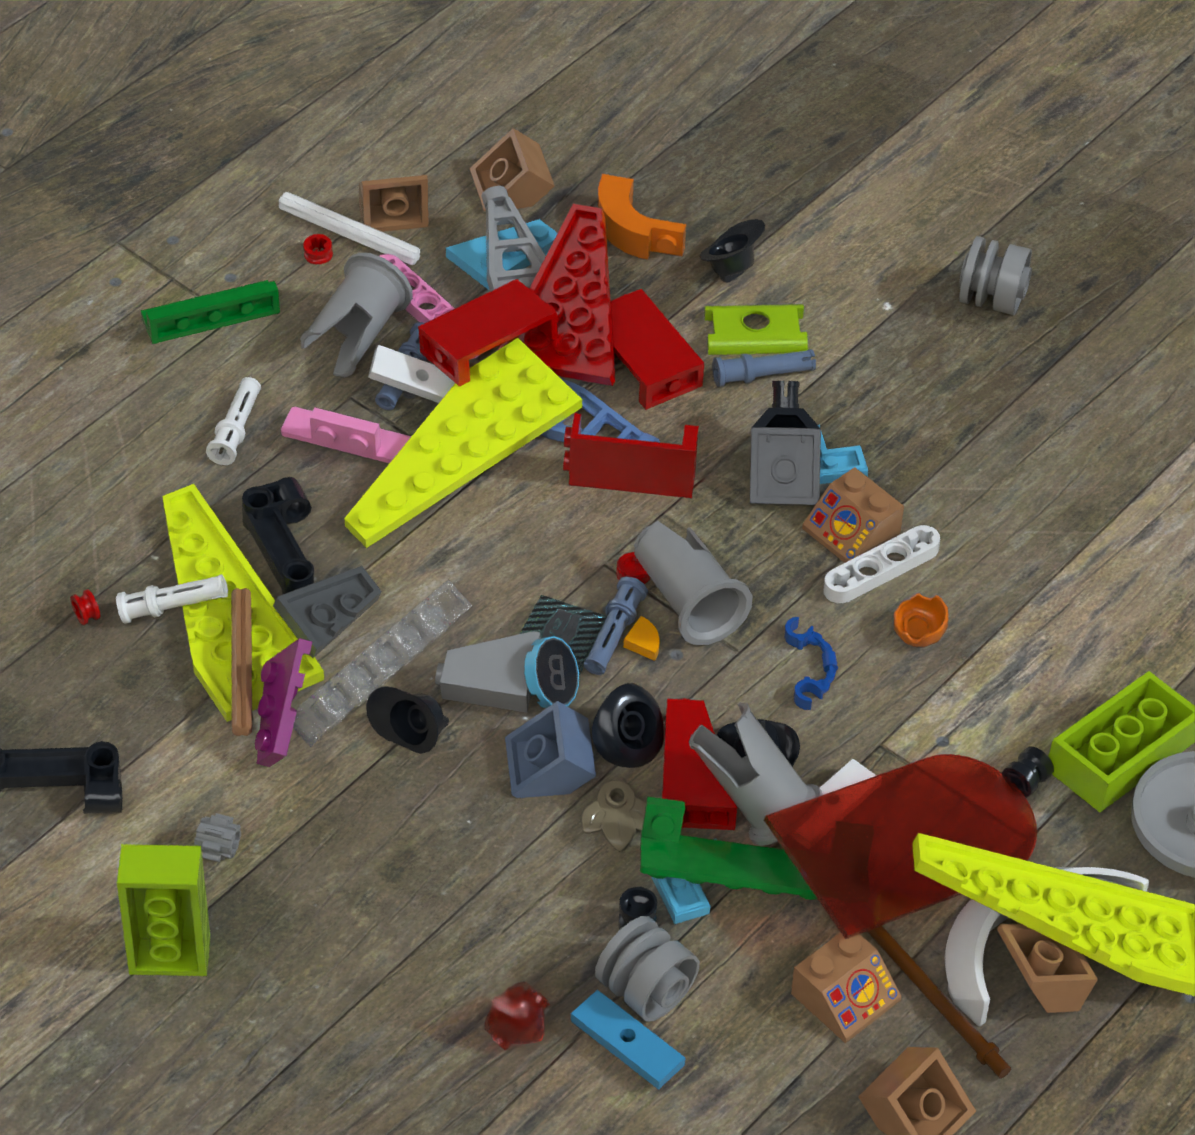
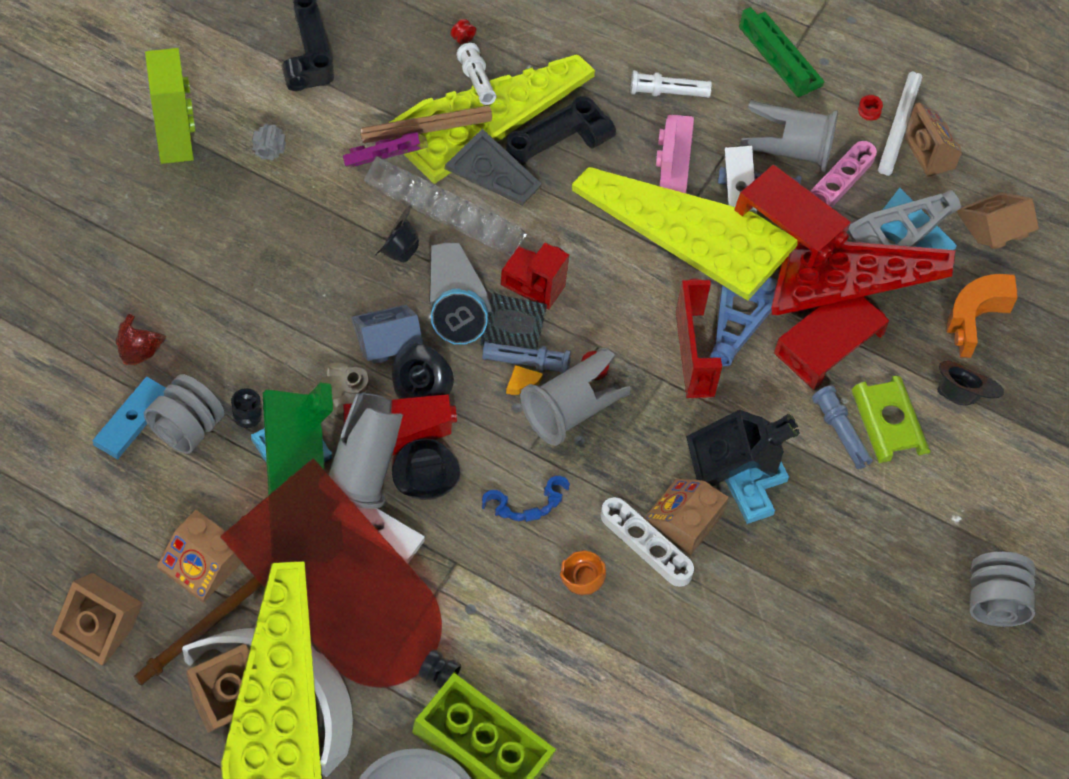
camera: 75 degrees right, 10 degrees up
(507, 590) = (537, 275): none -> red brick

